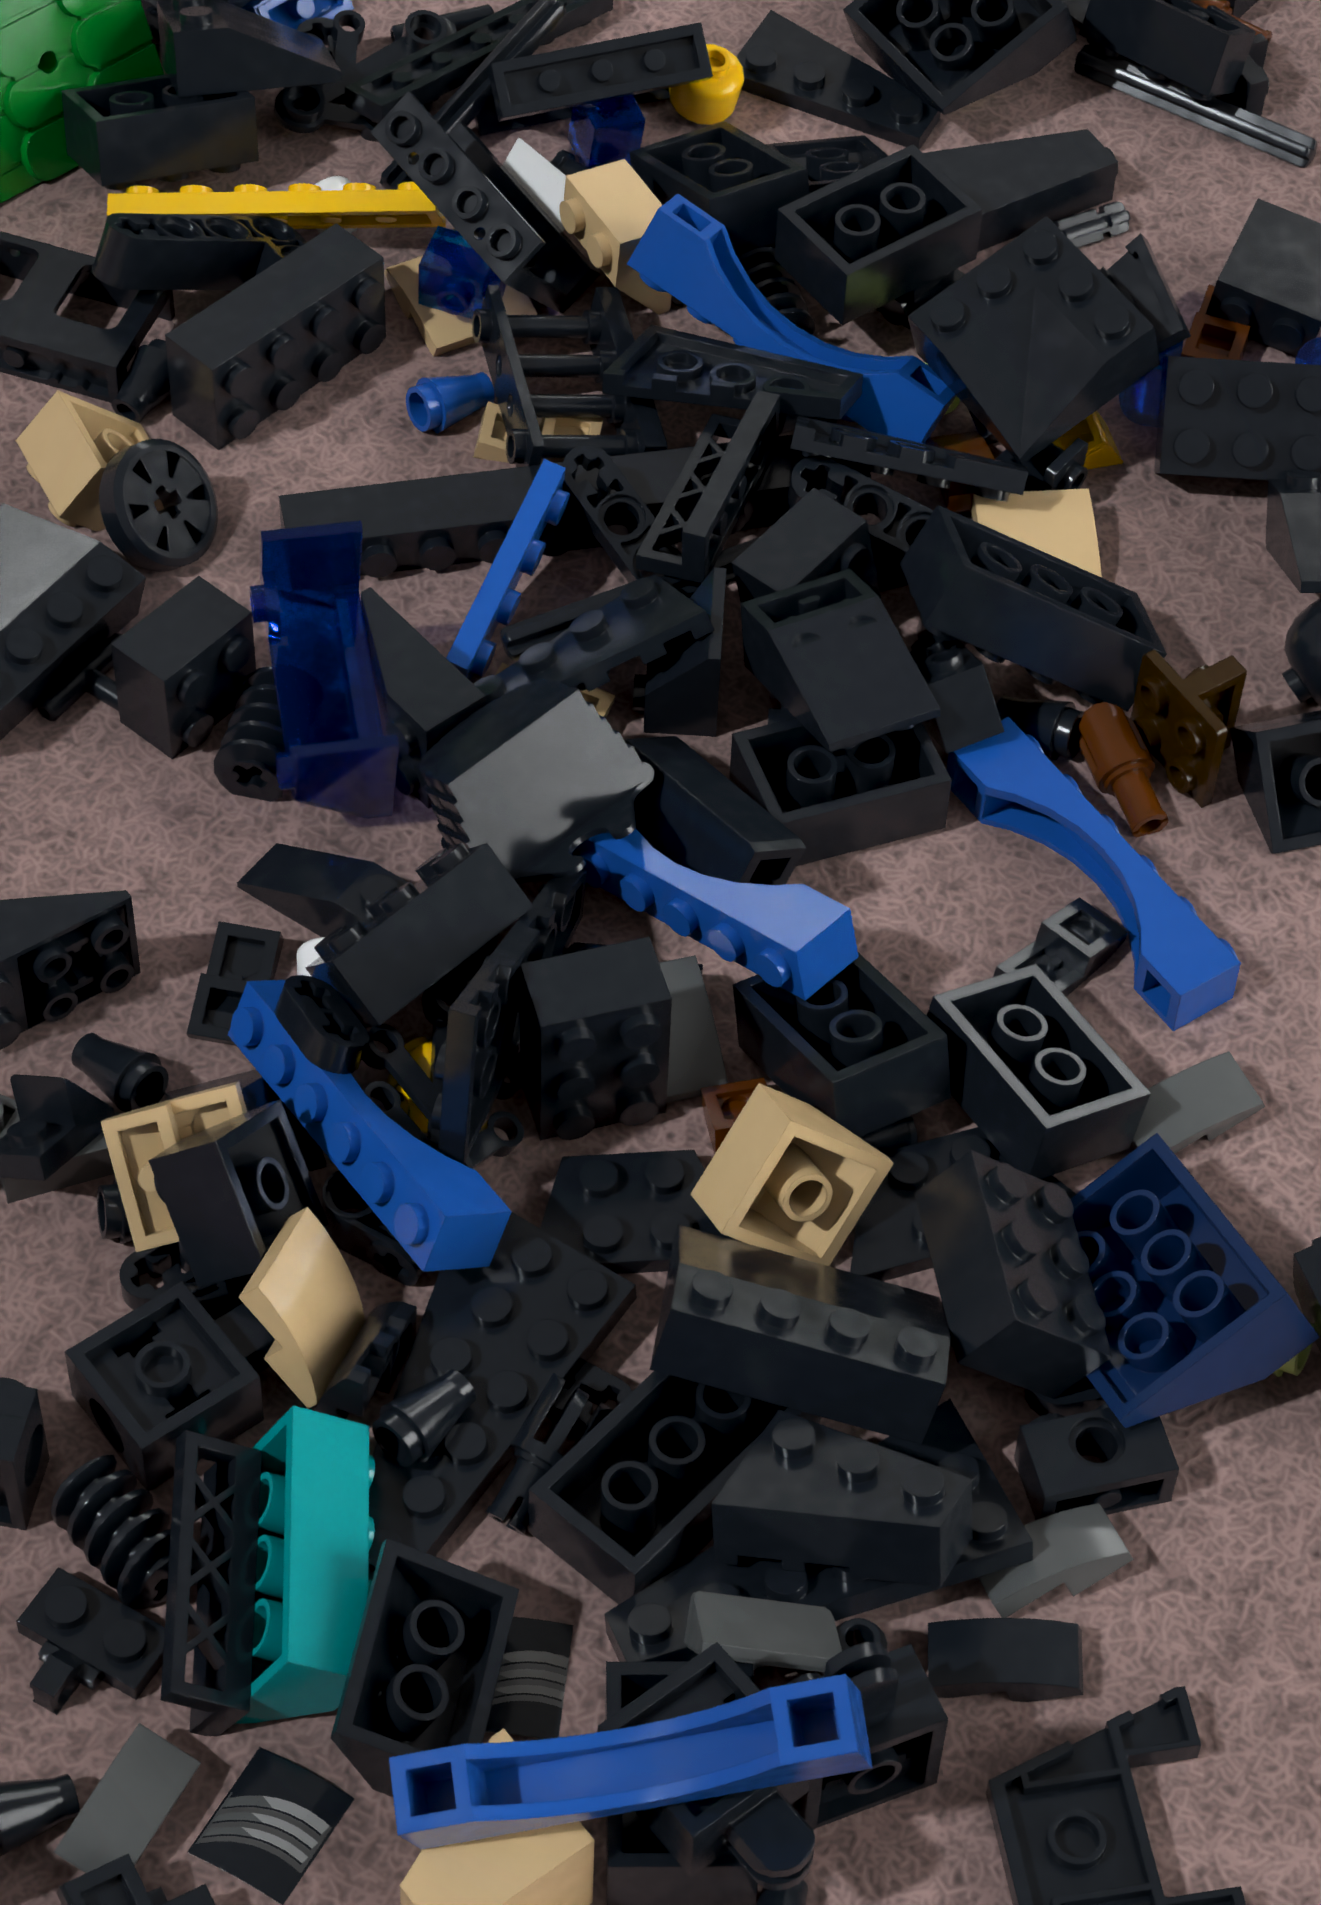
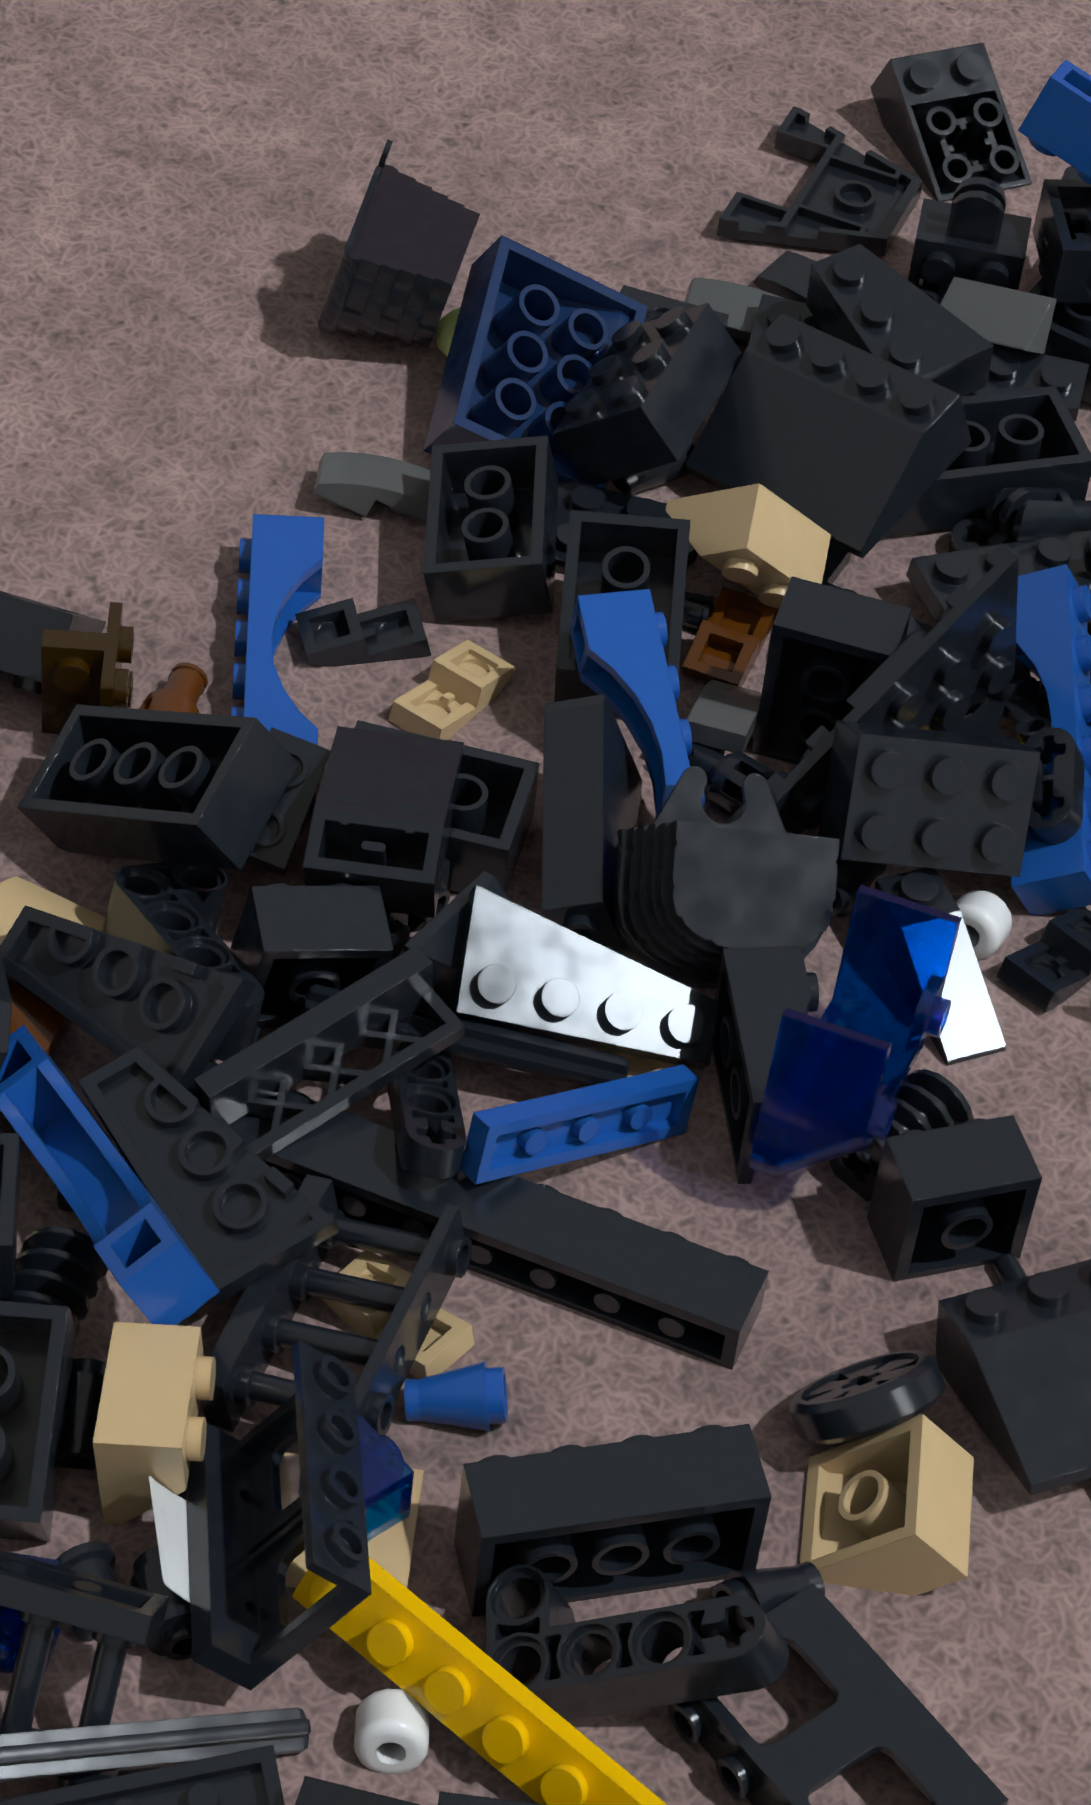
camera: 150 degrees left, 5 degrees down
(934, 940) = (455, 692): none -> tan slope

